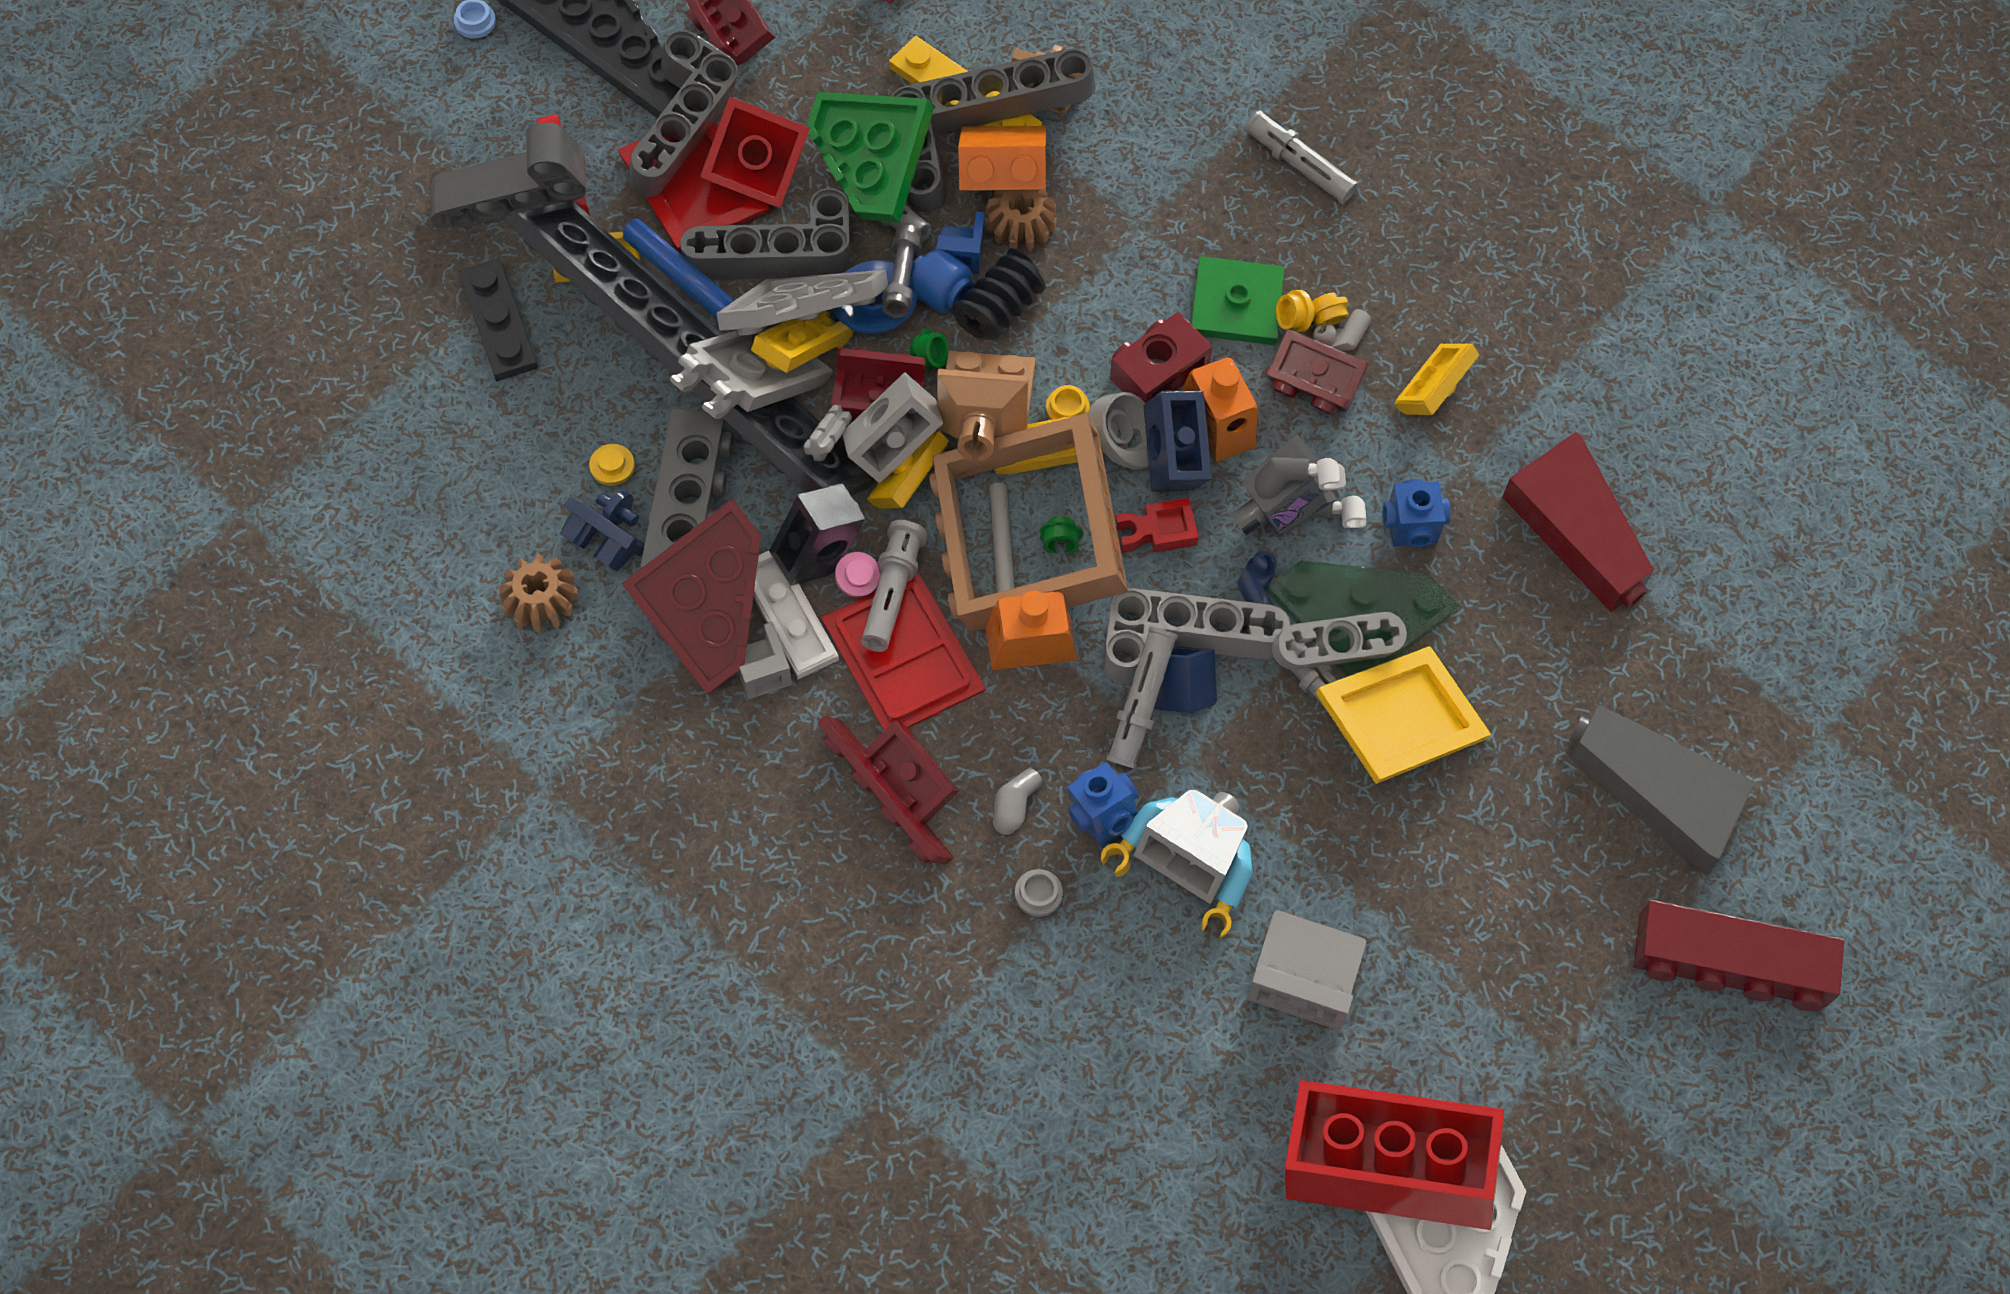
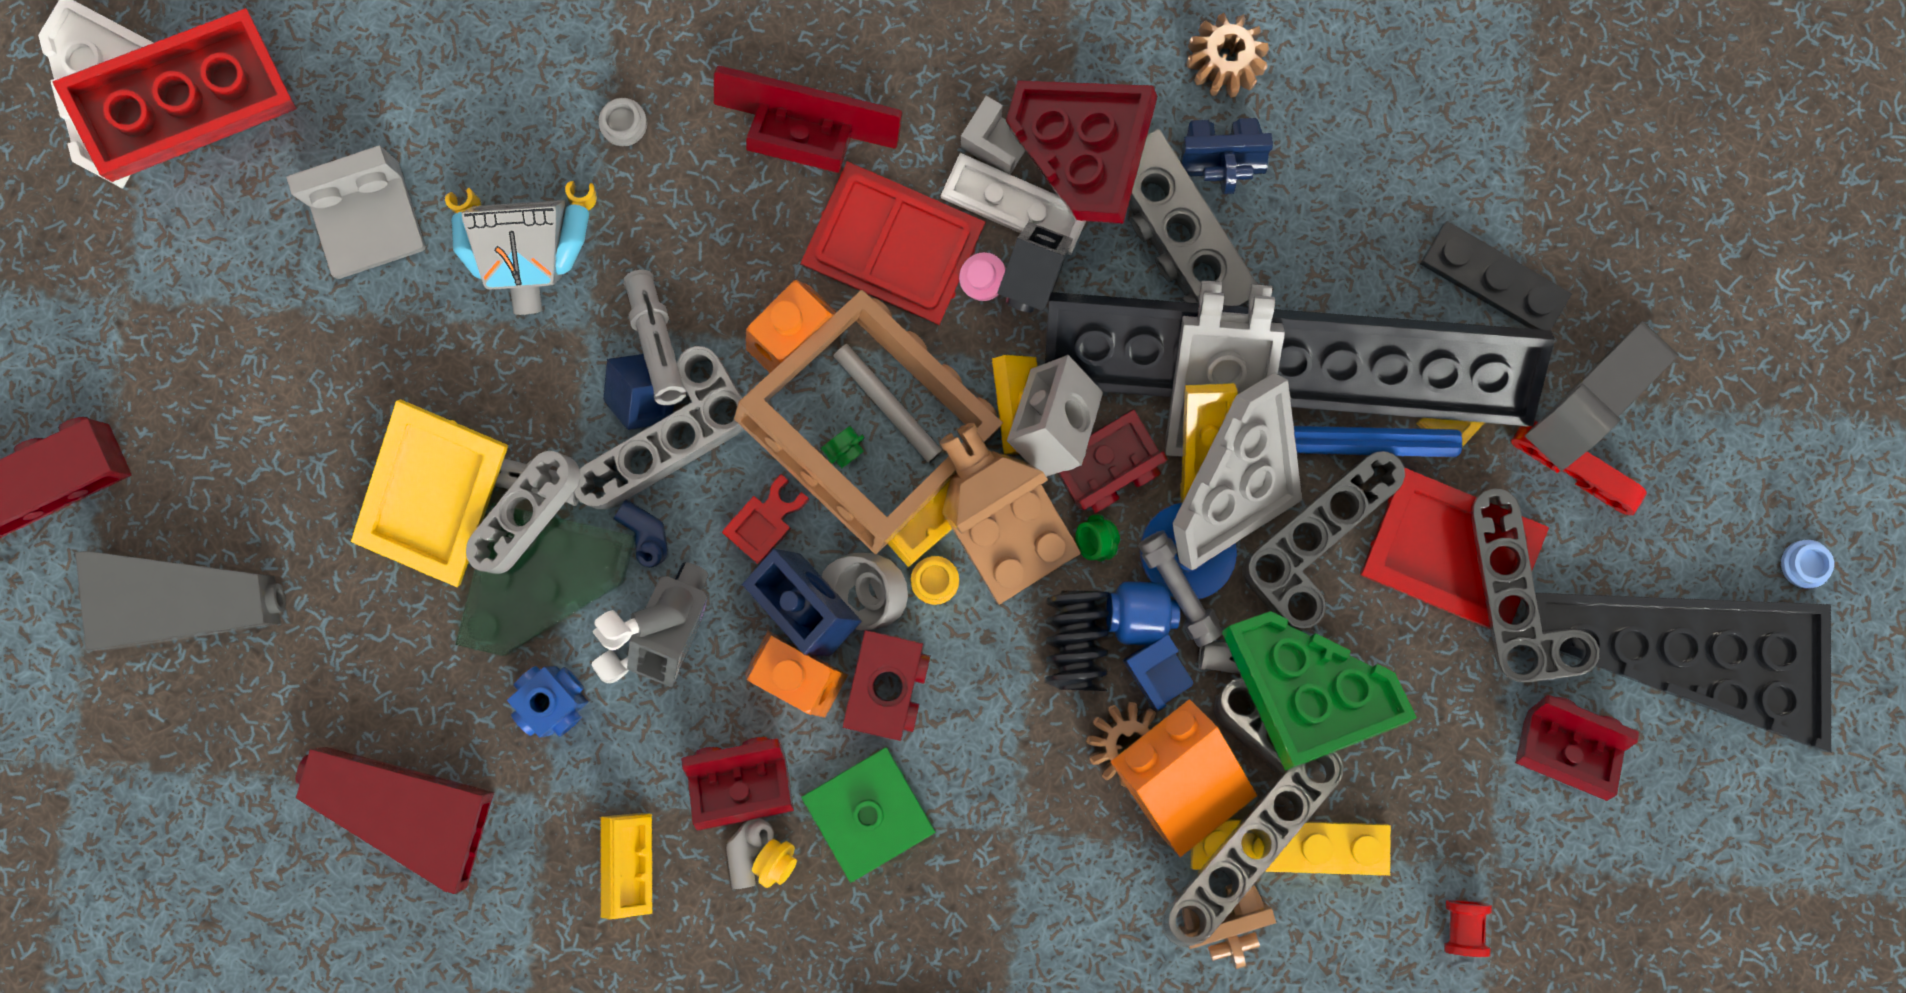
camera: 145 degrees right, 20 degrees up
(612, 464) = (1273, 219): yellow plate -> none
(755, 152) = (1415, 604): red slope -> none
(827, 433) = (1109, 372): light grey axle -> none
(896, 570) = (943, 283): light grey pin -> none
(1012, 801) = (700, 178): light grey arm -> none
(1102, 803) = (608, 234): blue brick -> none
(1295, 311) = (799, 832): yellow plate -> none

